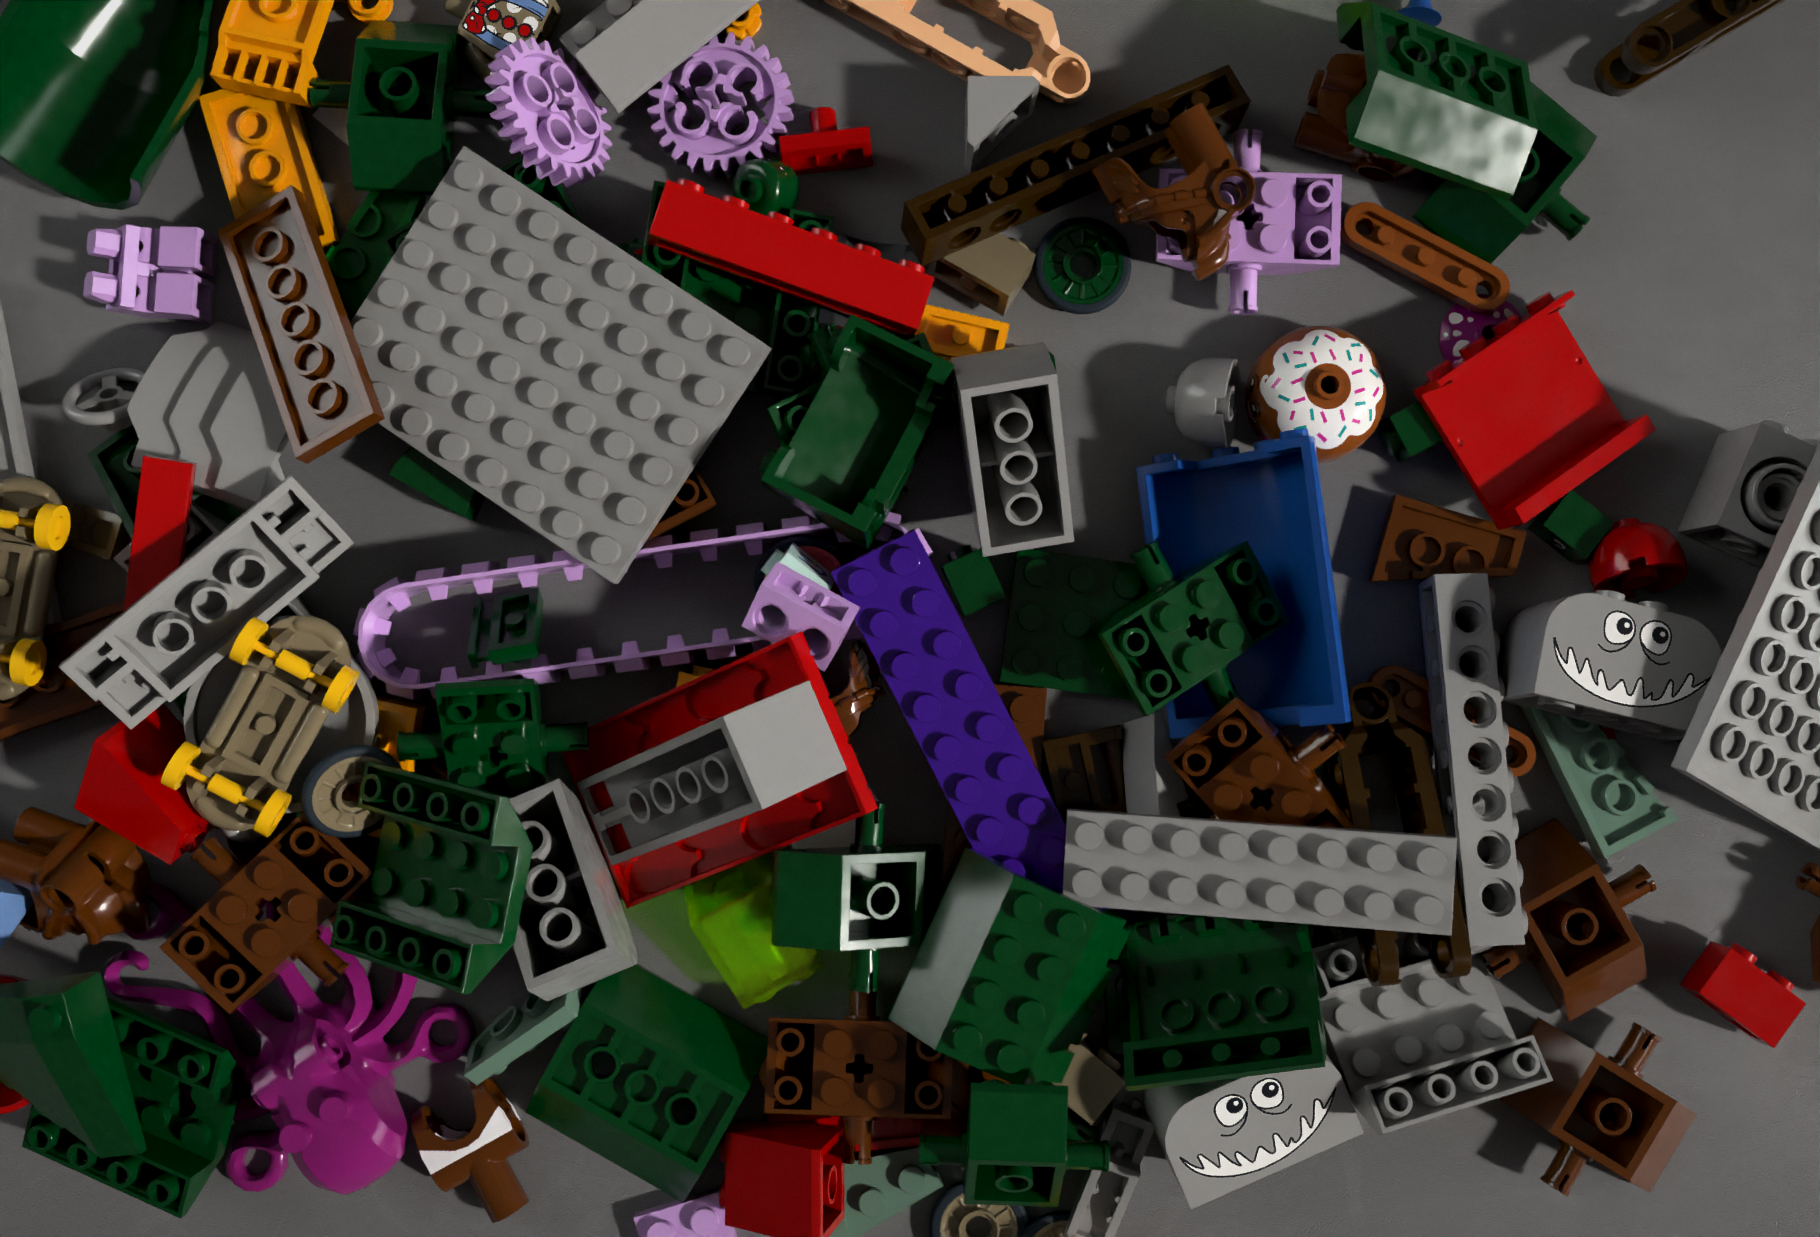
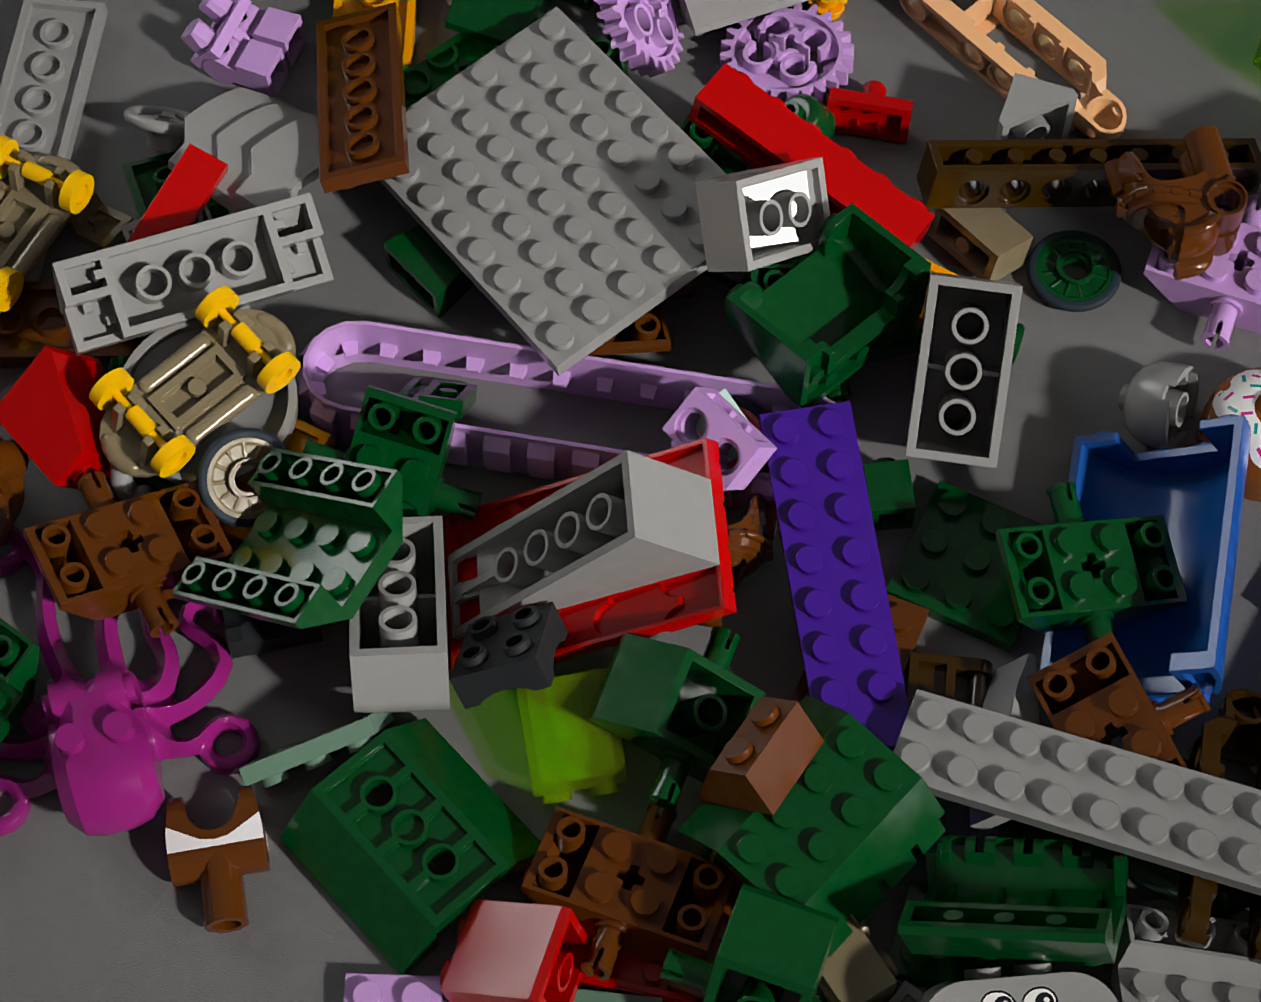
camera: 20 degrees right, 25 degrees down
(673, 900) = (508, 653): none -> black brick
(765, 358) = (762, 214): none -> light grey slope
(949, 950) = (763, 758): none -> reddish brown slope

